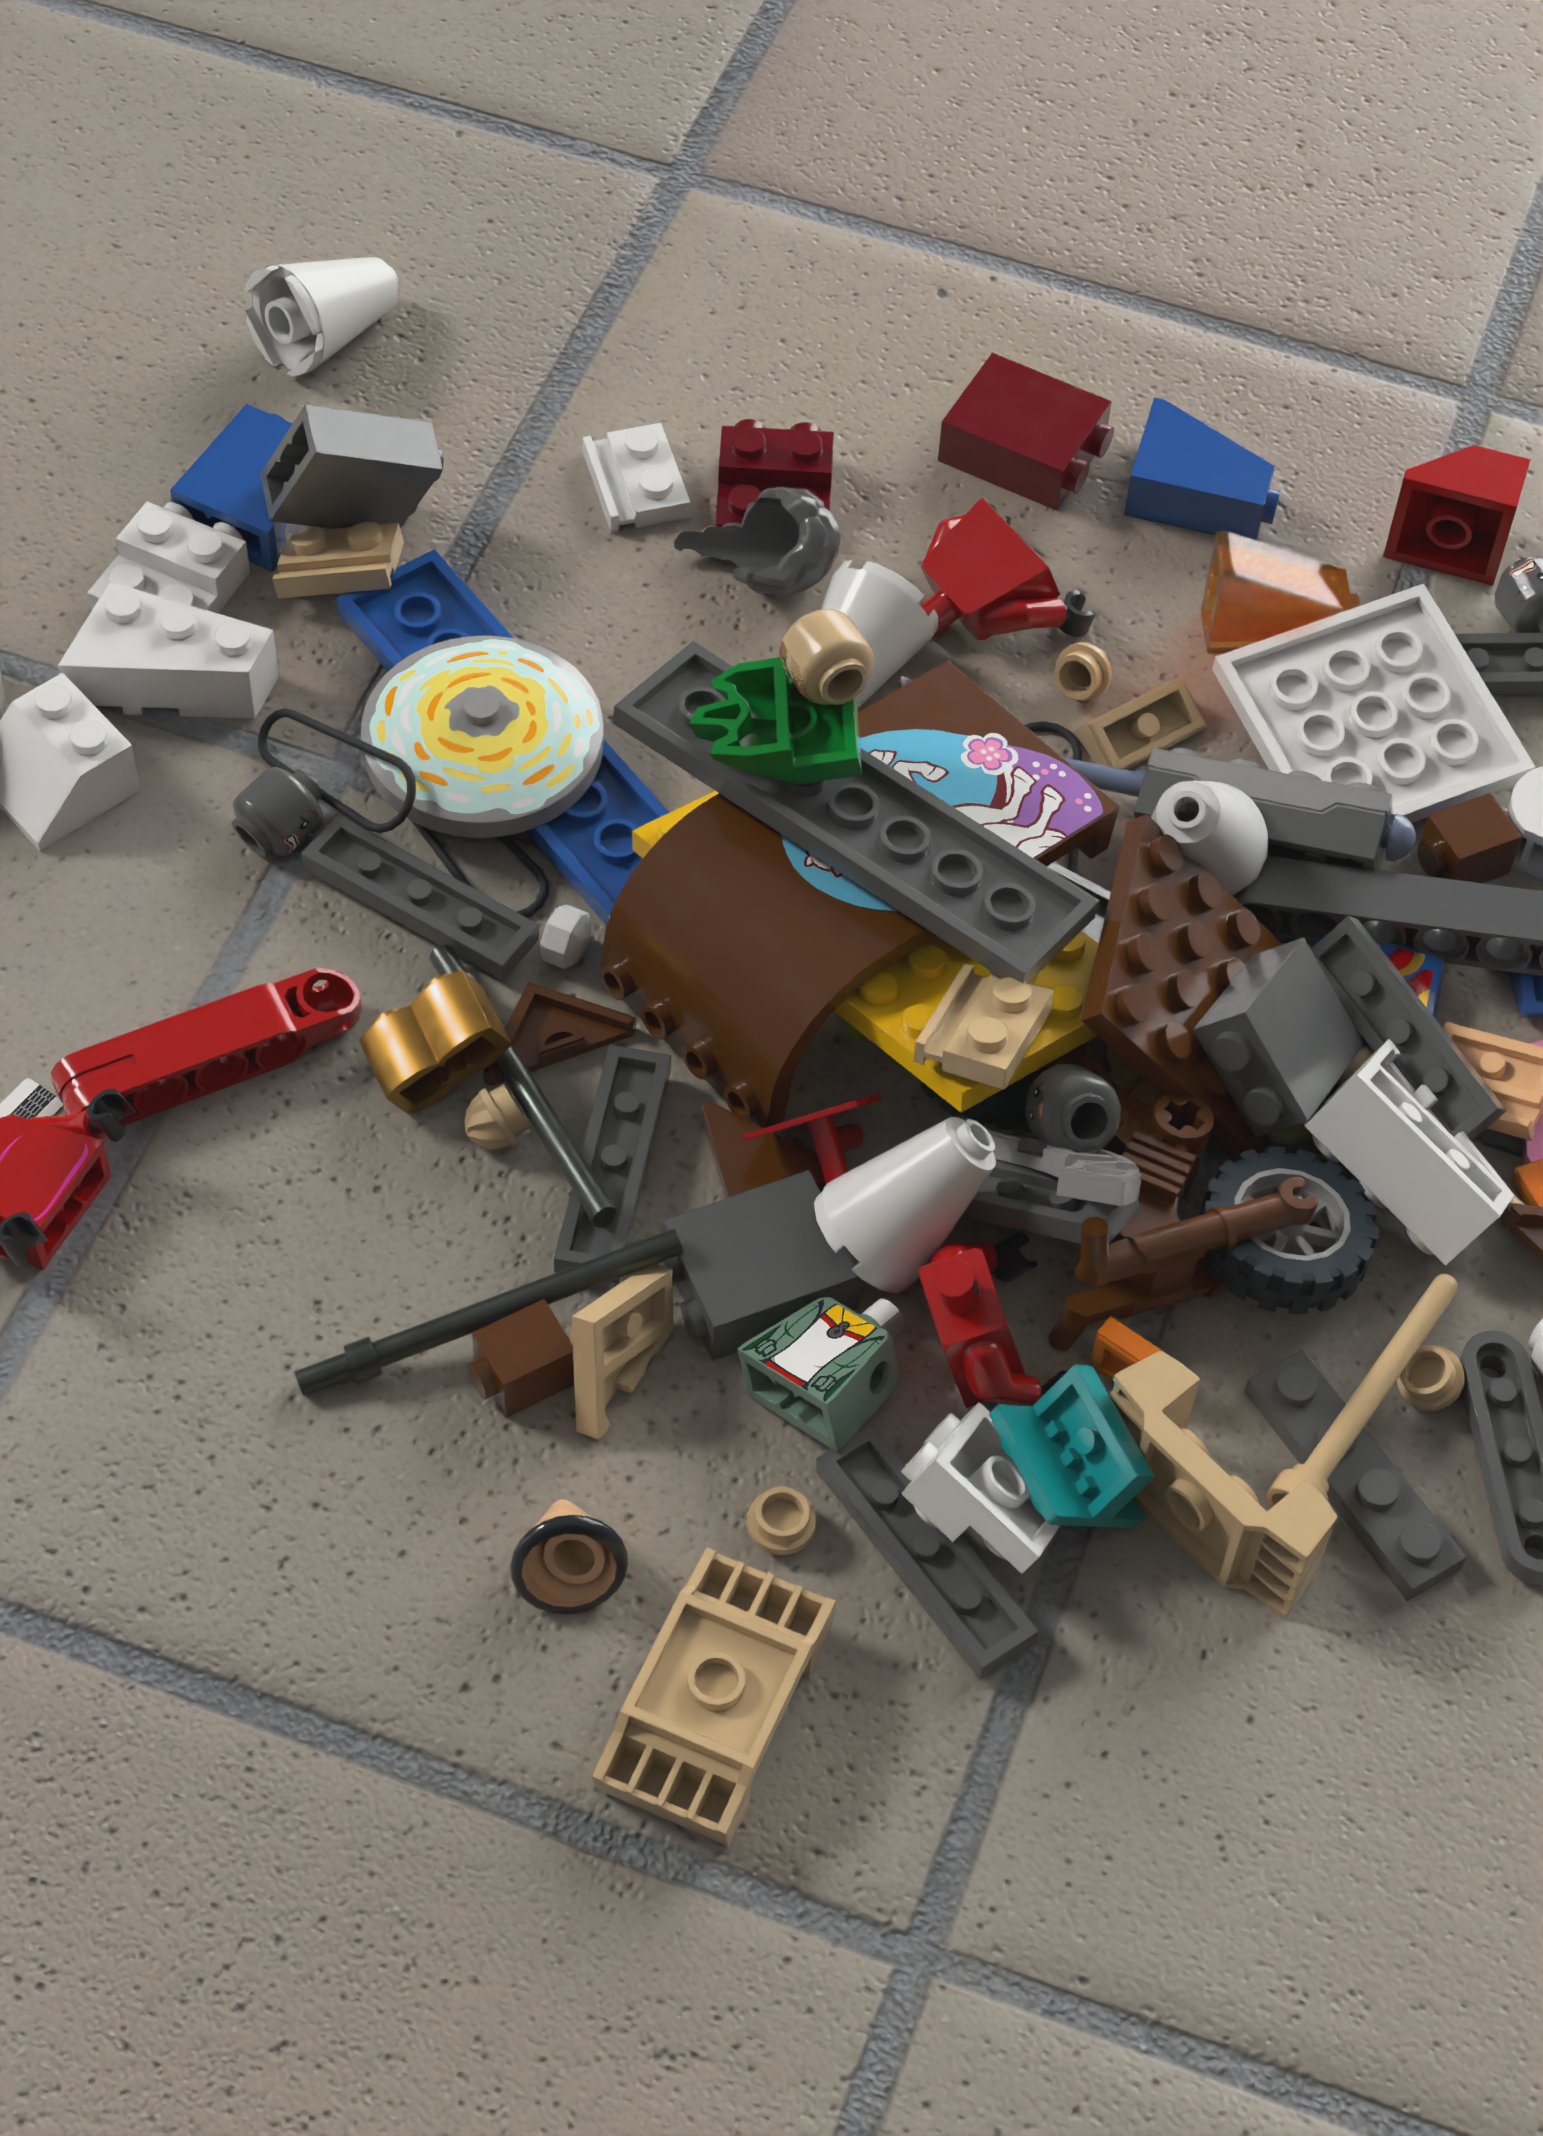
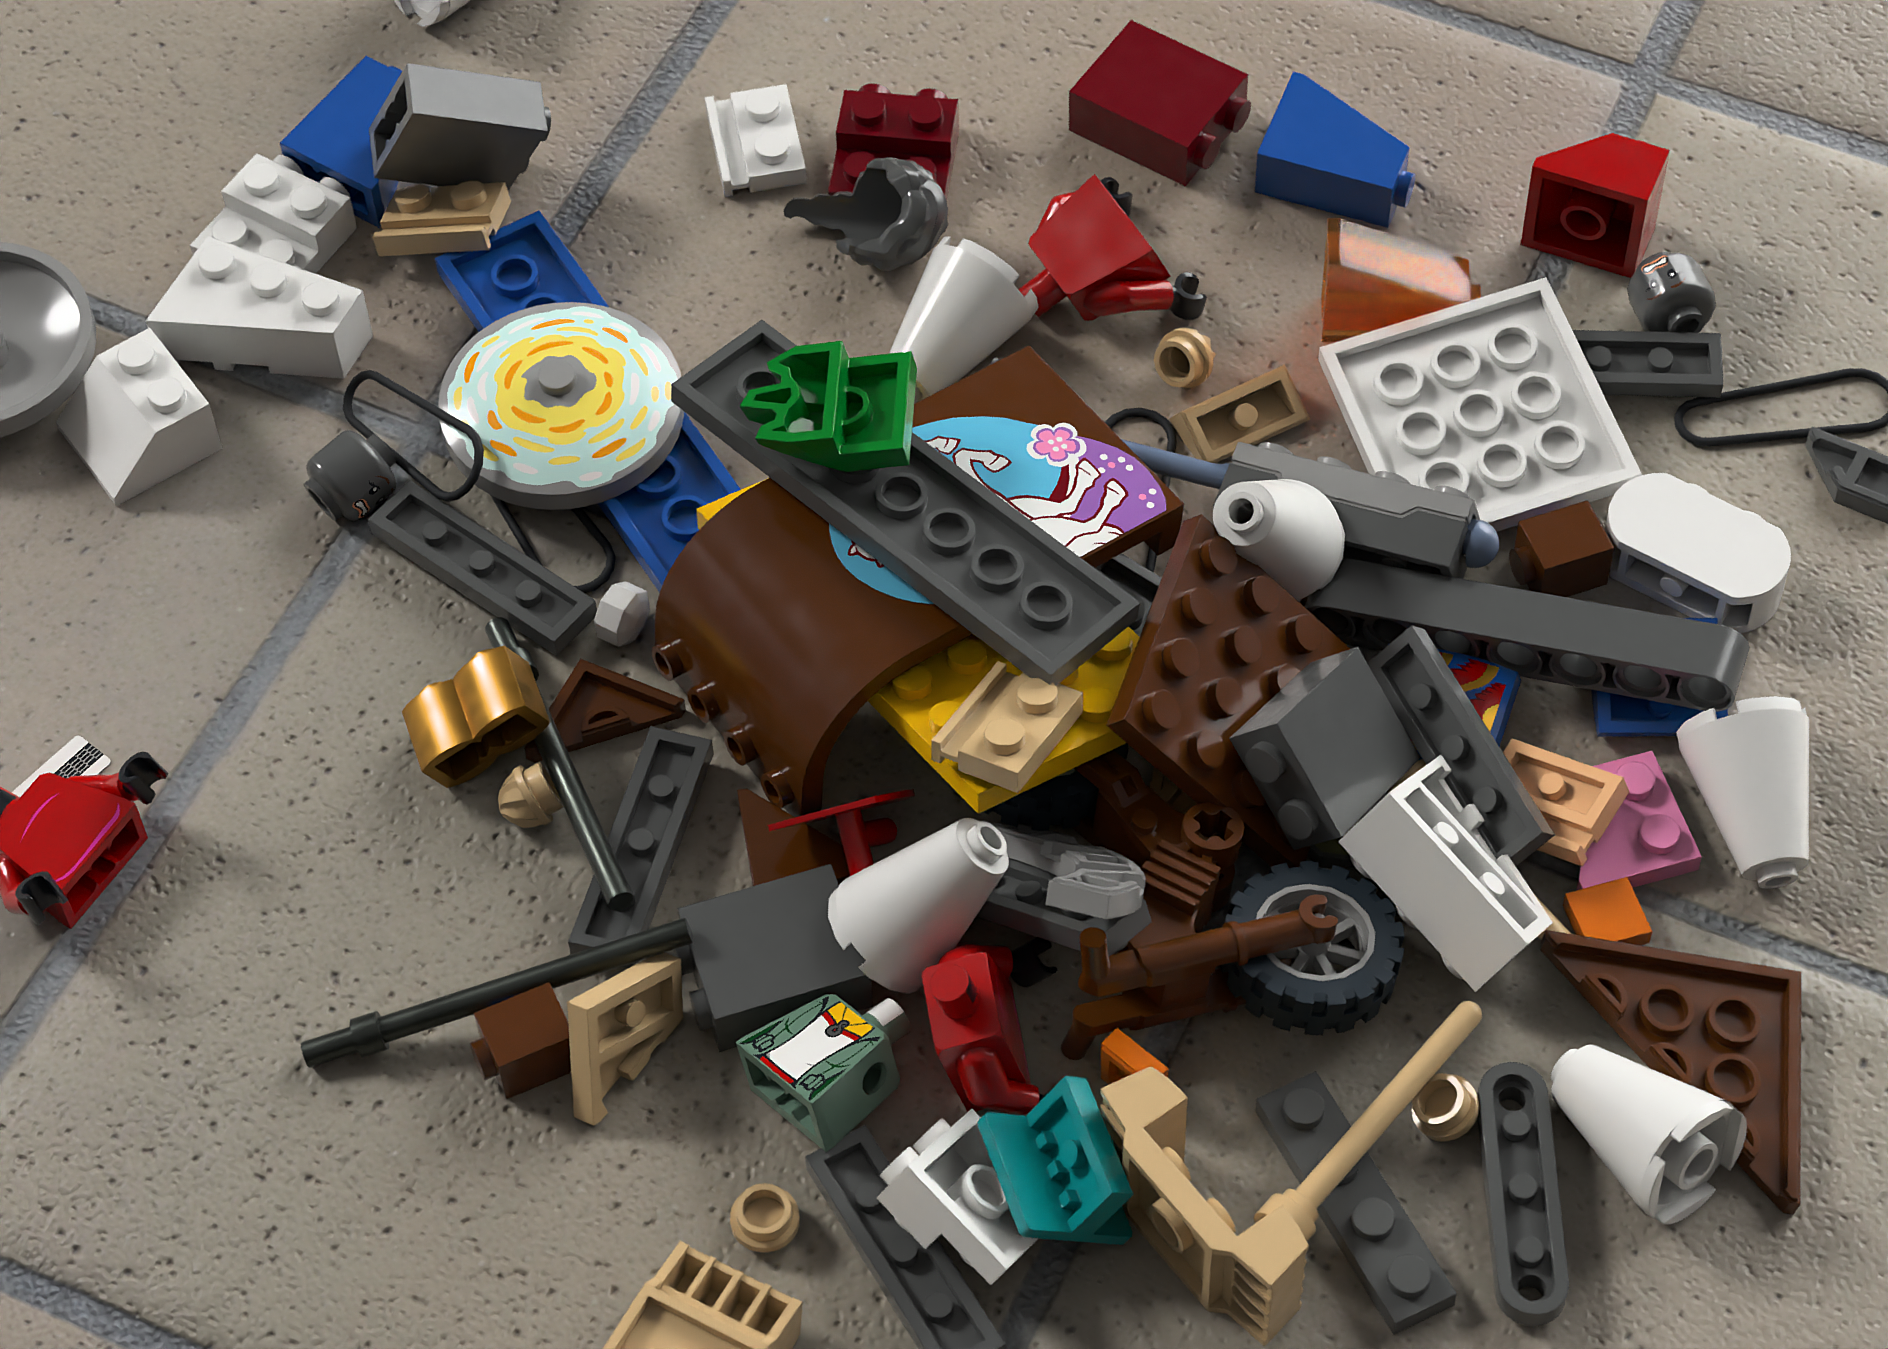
camera: 10 degrees right, 0 degrees up
(211, 1045) = (257, 710): red piece -> none
(568, 1561) = (543, 1247): light nougat hat -> none
(827, 657) = (880, 343): tan head -> none
(1072, 1108) = (1096, 814): dark grey head -> none

